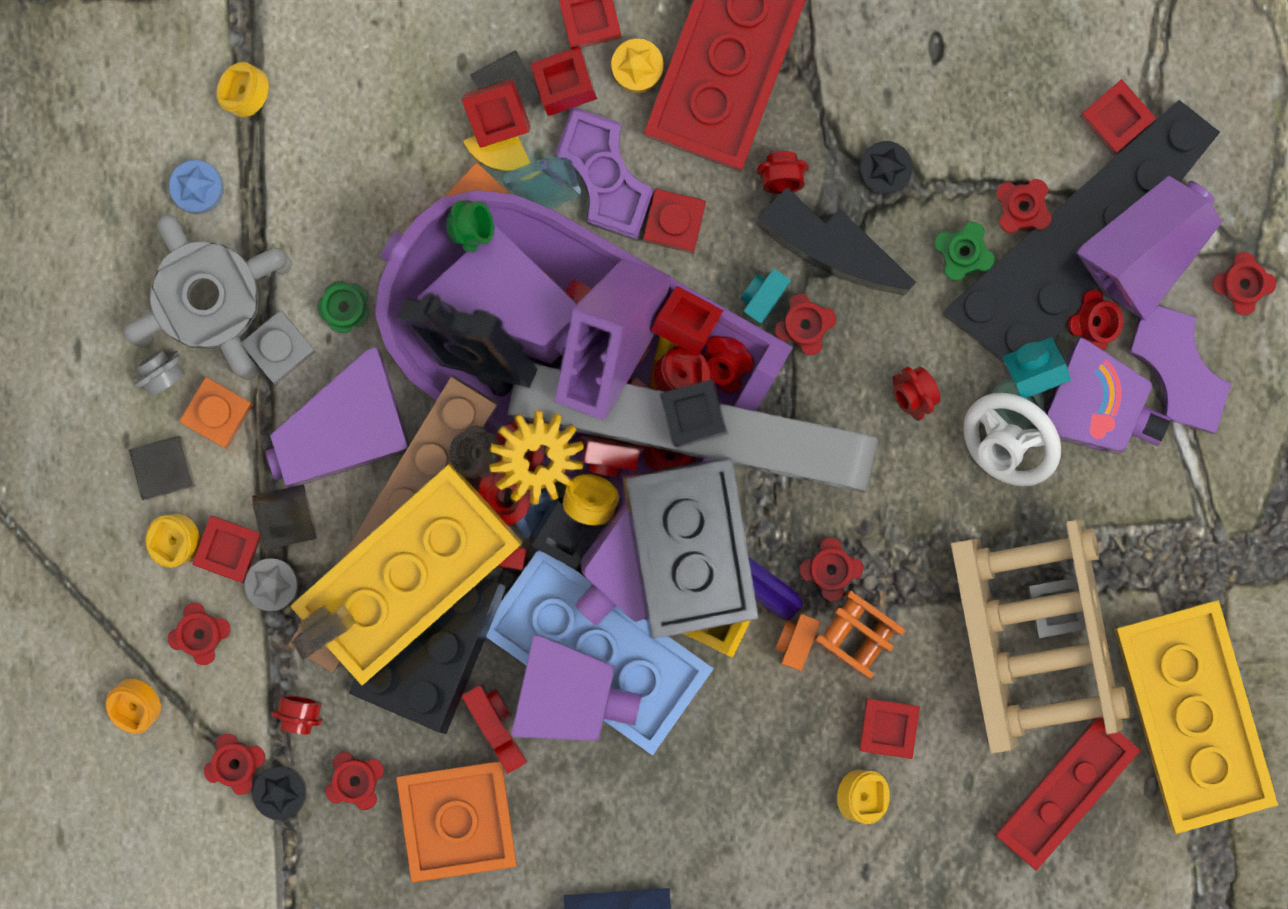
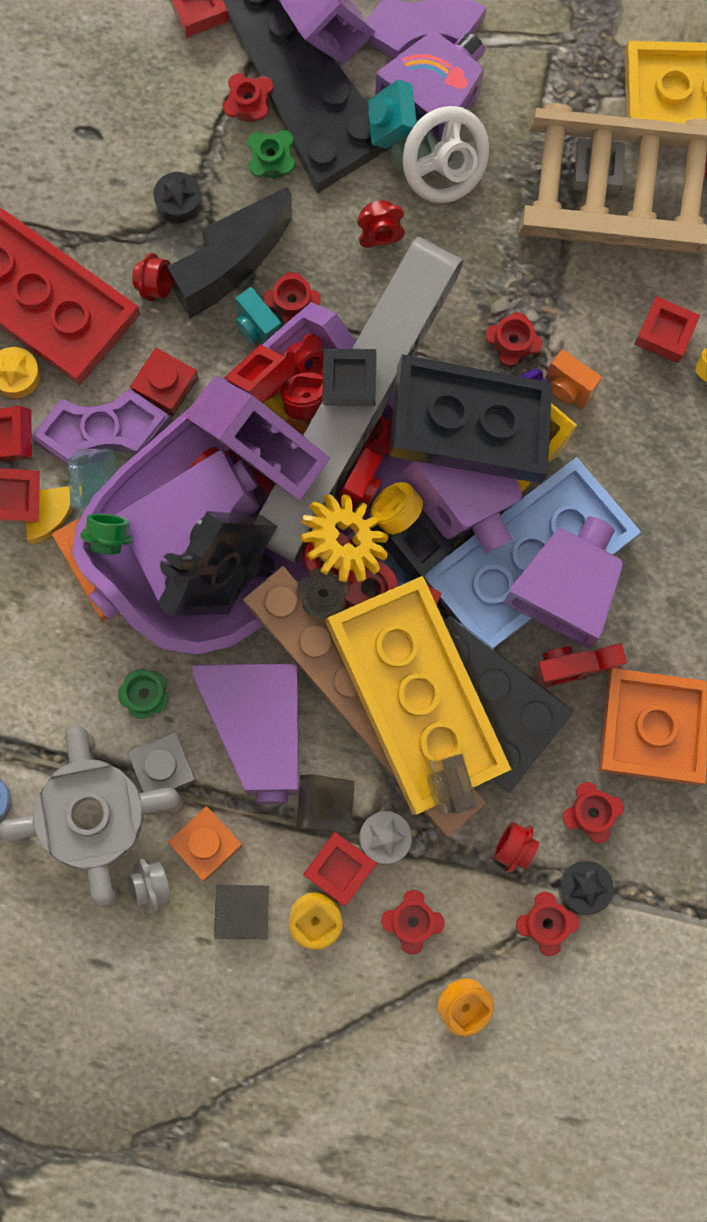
camera: 80 degrees left, 10 degrees down
(875, 640) = (577, 316): orange piece -> none
(1108, 323) = (362, 66): red plate -> none

